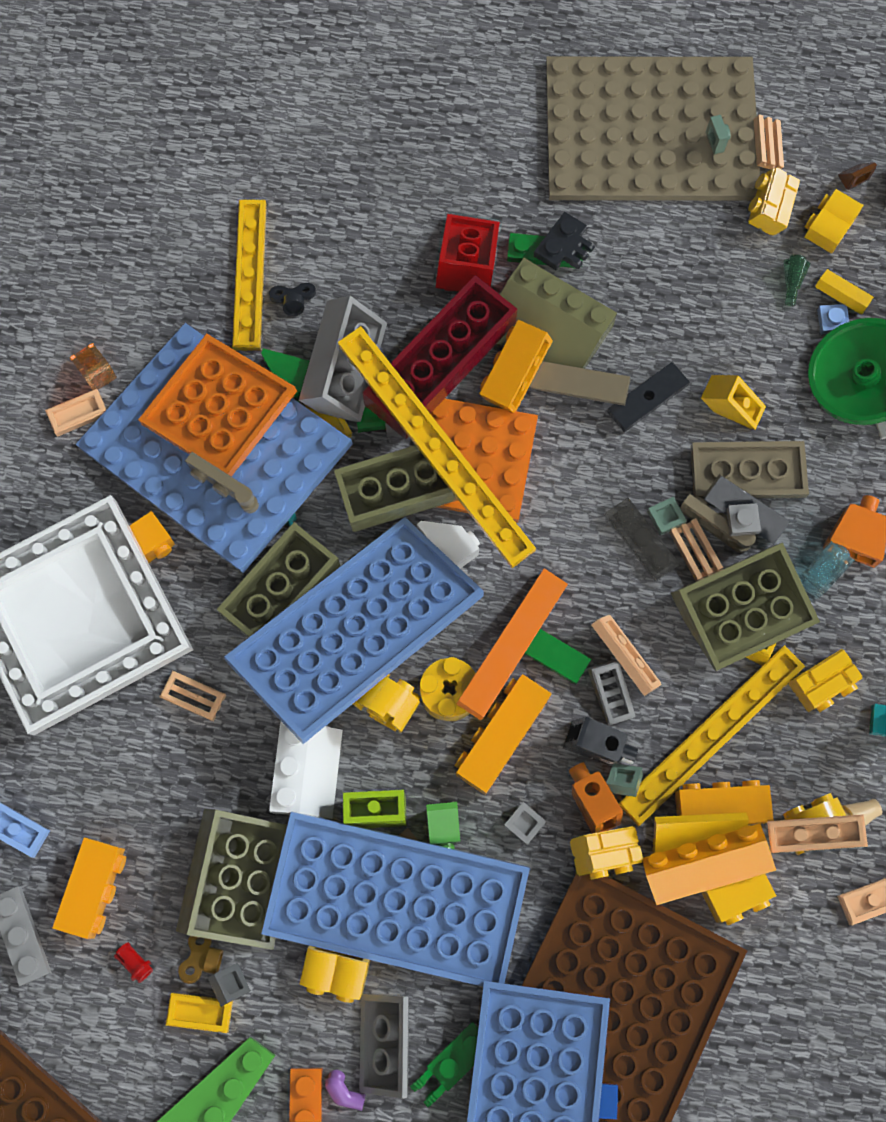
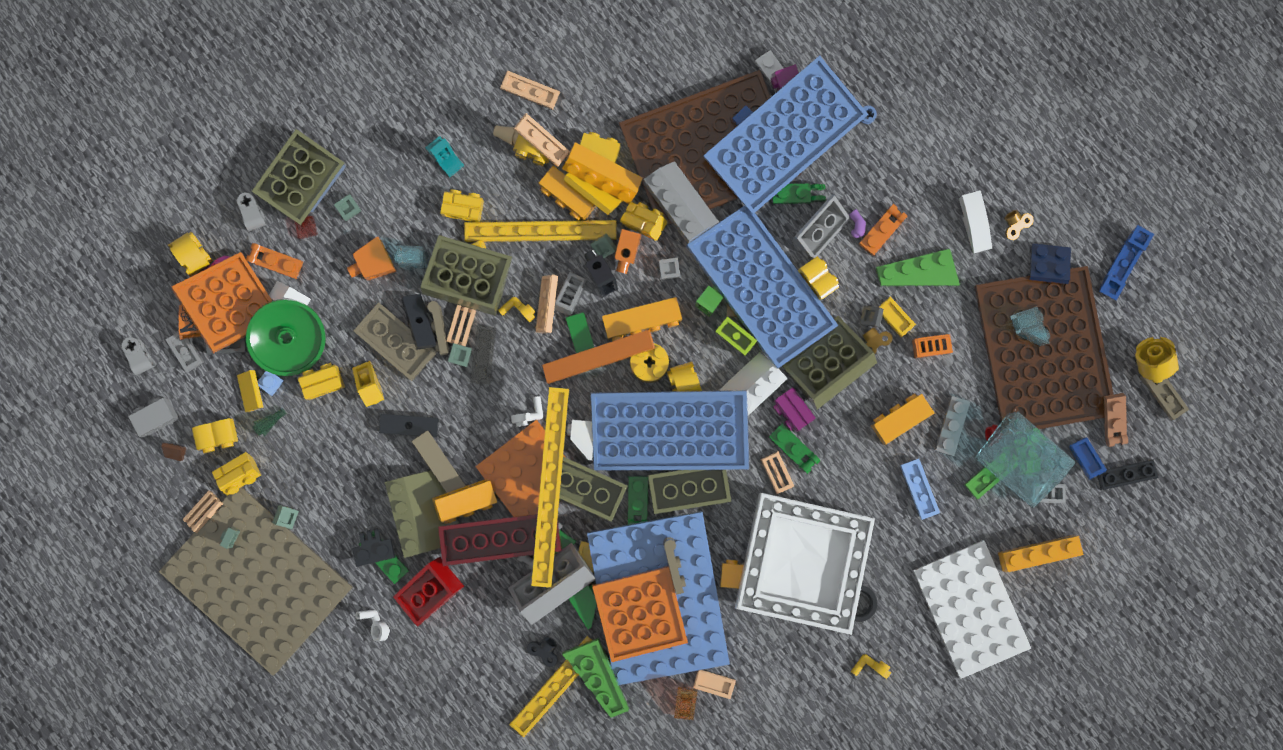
camera: 145 degrees left, 10 degrees up
(133, 962) = (908, 366): red pin -> none
(137, 994) = (917, 346): none -> orange slope
(196, 741) = (793, 448): none -> green plate
(223, 319) = (594, 668): none -> bright green wing
(232, 783) = (793, 409): none -> magenta brick
(327, 529) = (637, 499): none -> green plate
(483, 179) = (379, 628): none -> white plate
(534, 506) = (522, 419): none -> white plate
(584, 916) = (680, 201): none -> light grey slope
(641, 625) = (527, 311): none -> yellow plate
(683, 203) = (285, 516): none -> sand green plate
(743, 519) = (427, 316): light grey plate -> none
(782, 361) = (321, 381): none -> yellow brick

